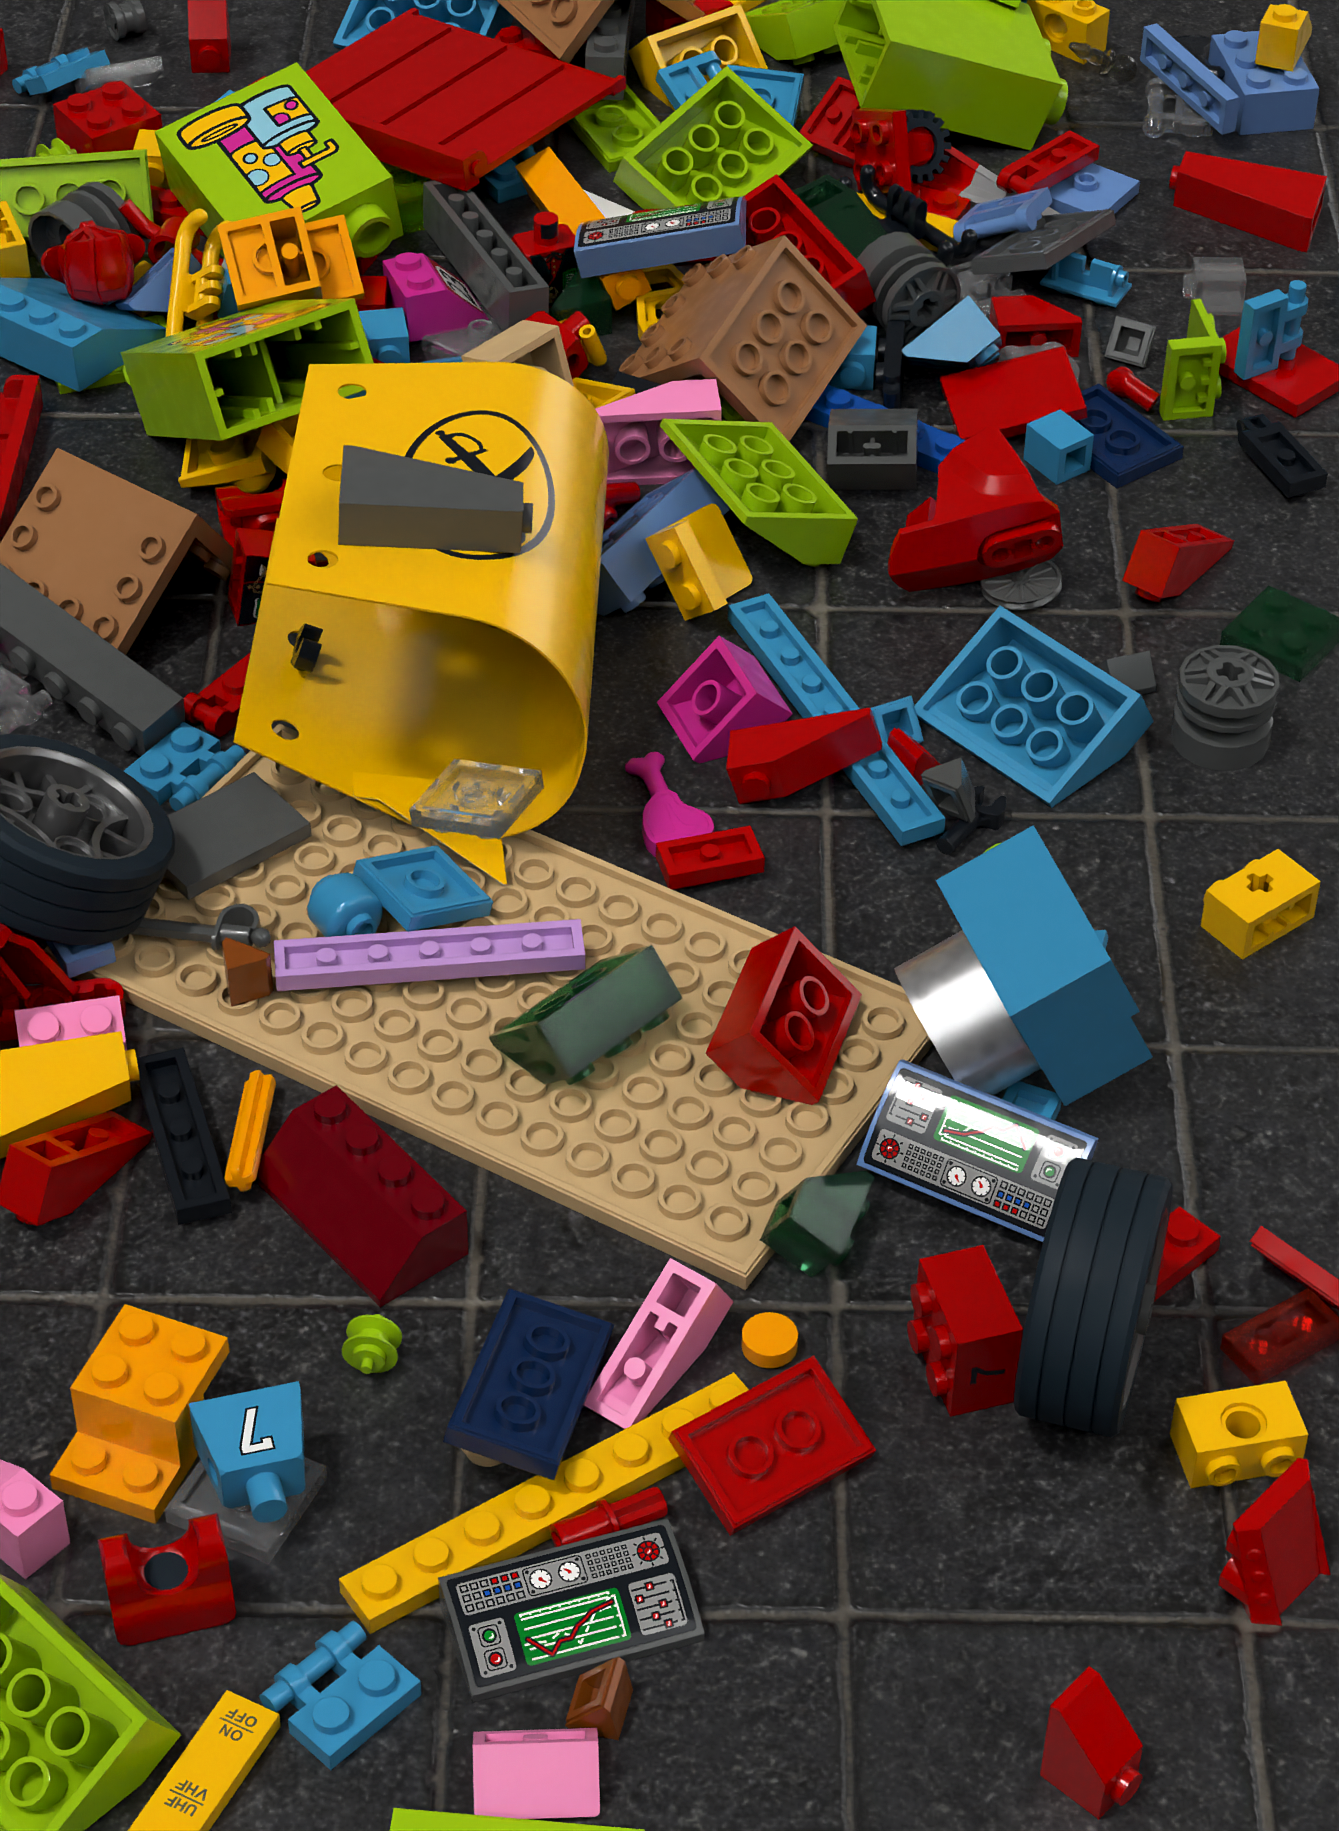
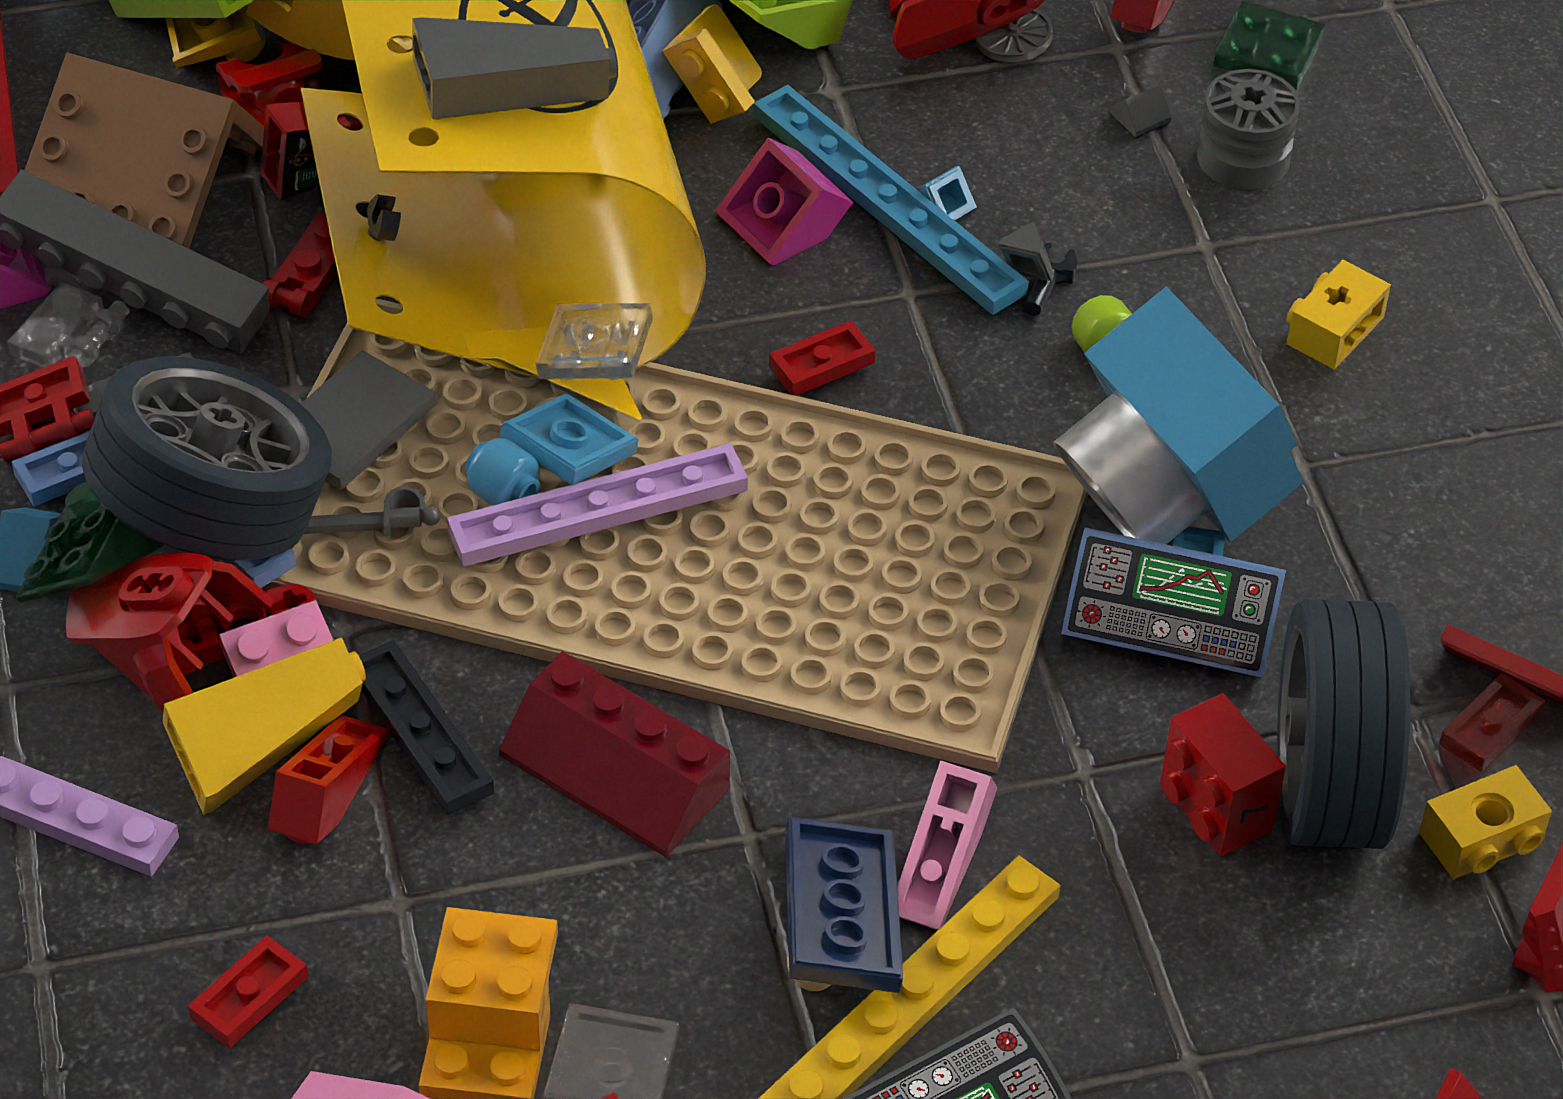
camera: 15 degrees left, 5 degrees up
(175, 761) = (276, 347): dark azure plate -> none
(246, 972) = (429, 553): dark orange slope -> none
(250, 1131) = (486, 709): light orange axle -> none
(253, 1447) = (613, 1021): dark azure torso -> none
(372, 1343) = (678, 895): lime wheel -> none
(590, 1017) = (771, 537): clear green slope -> none
(612, 1517) = (954, 1018): red axle -> none
(665, 814) = (764, 324): dark pink piece -> none
(769, 1340) = (1038, 817): light orange tile -> none
(771, 1445) = (1077, 917): red tile -> none
(784, 1020) = (953, 507): red slope -> none
(793, 754) = (870, 243): red slope -> none
(816, 1219) = (1048, 696): clear green slope -> none
(911, 753) = (976, 224): red slope -> none
(1033, 709) = (1072, 159): dark azure slope -> none

